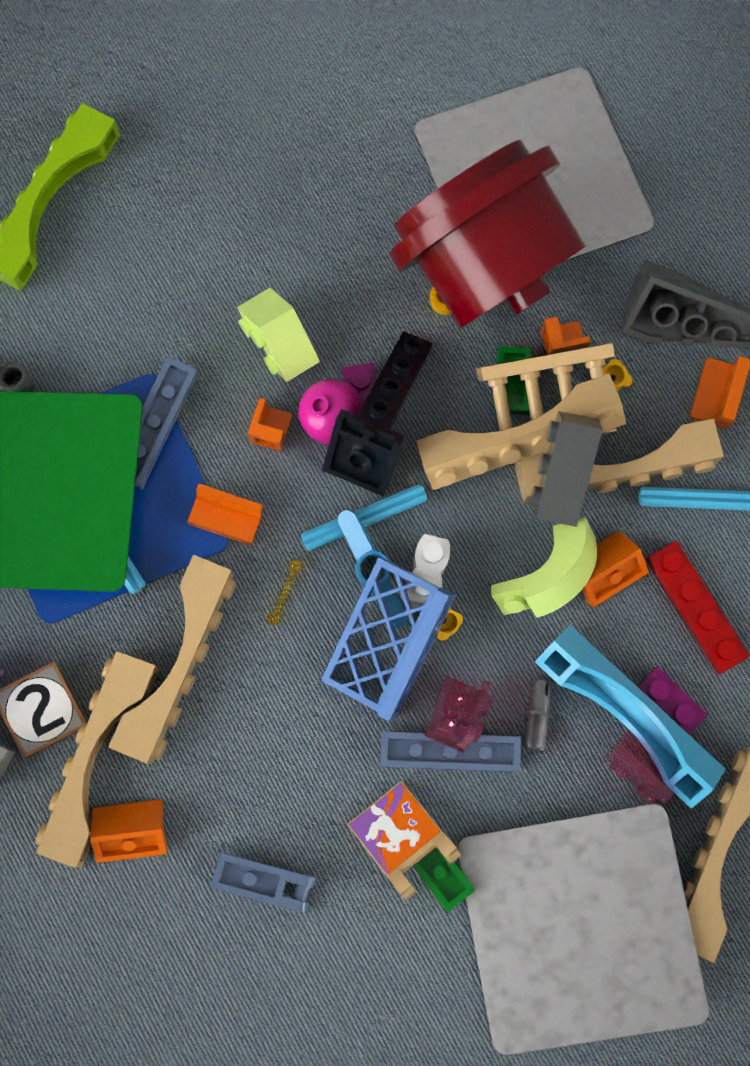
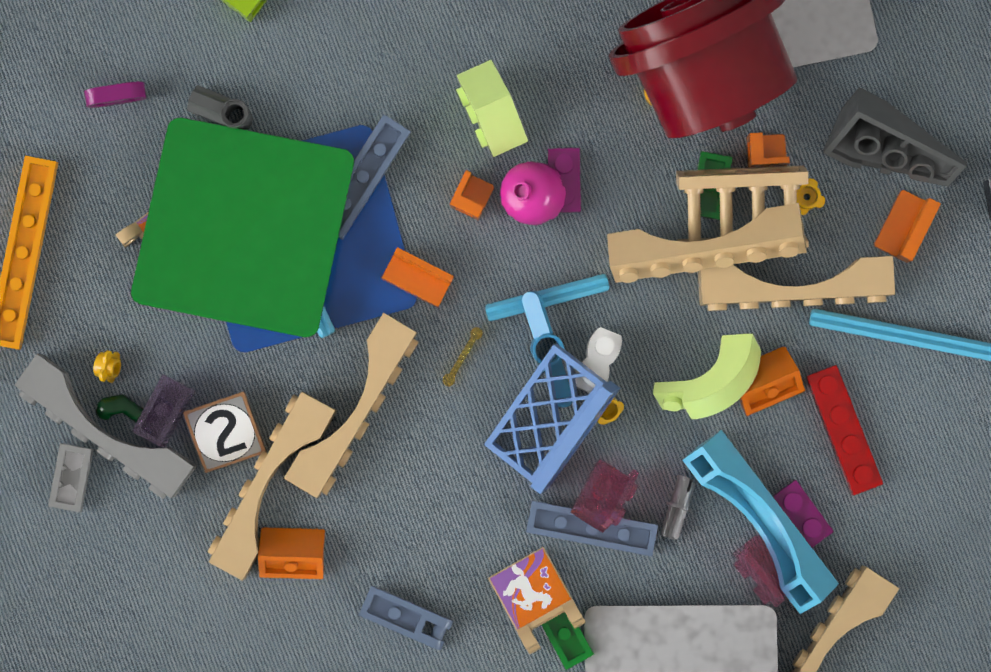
camera: 10 degrees right, 10 degrees up
(363, 444) = (557, 234): black bracket -> none
(566, 468) = (741, 288): dark grey brick -> none

